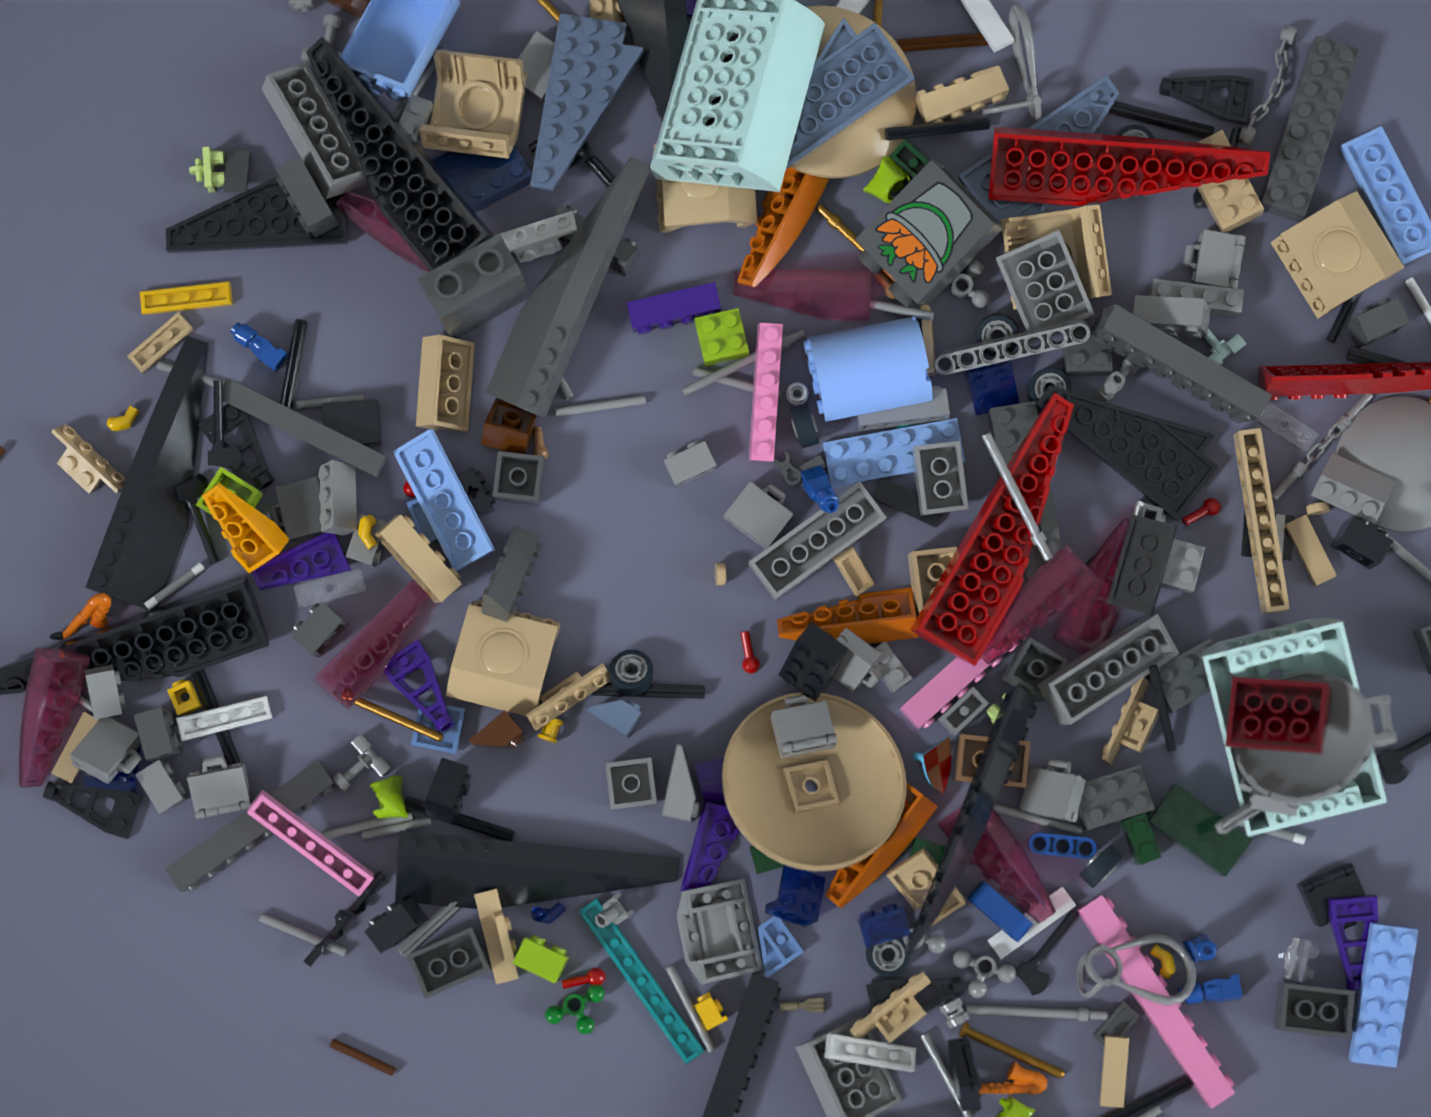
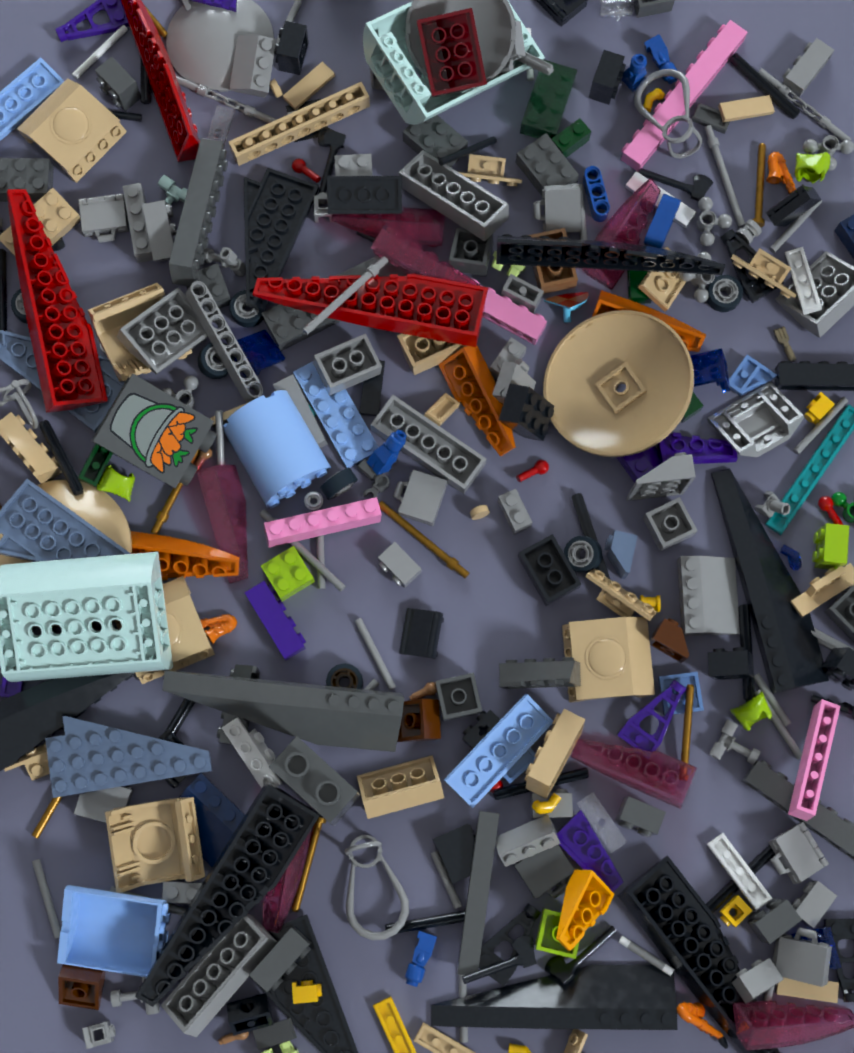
camera: 115 degrees left, 5 degrees down
(250, 137) = (229, 1038): none -> medium nougat piece
(264, 139) = (249, 1014): none -> black brick
(265, 213) = (306, 992): none -> yellow brick
(336, 347) = (350, 893): none -> light grey animal
(365, 238) = (311, 850): none -> pearl gold bar
(392, 564) = (520, 788): none -> black axle
(536, 800) = (708, 595): none -> light grey slope
(590, 369) = (345, 671): none -> wheel
(604, 462) = (421, 633): none -> black piece
(625, 627) = (549, 570): none -> black brick
(673, 524) = (452, 563): none -> pearl gold bar
(689, 245) = (219, 626): none -> orange piece
(706, 613) = (514, 511): none -> light grey brick
(802, 727) = (580, 404): light grey piece -> none
(884, 925) = (706, 299): clear blue bracket -> none
(1101, 866) = (602, 158): black wheel -> none
(1206, 910) = (607, 77): none -> black brick
(1229, 560) = (335, 140): none -> black piece

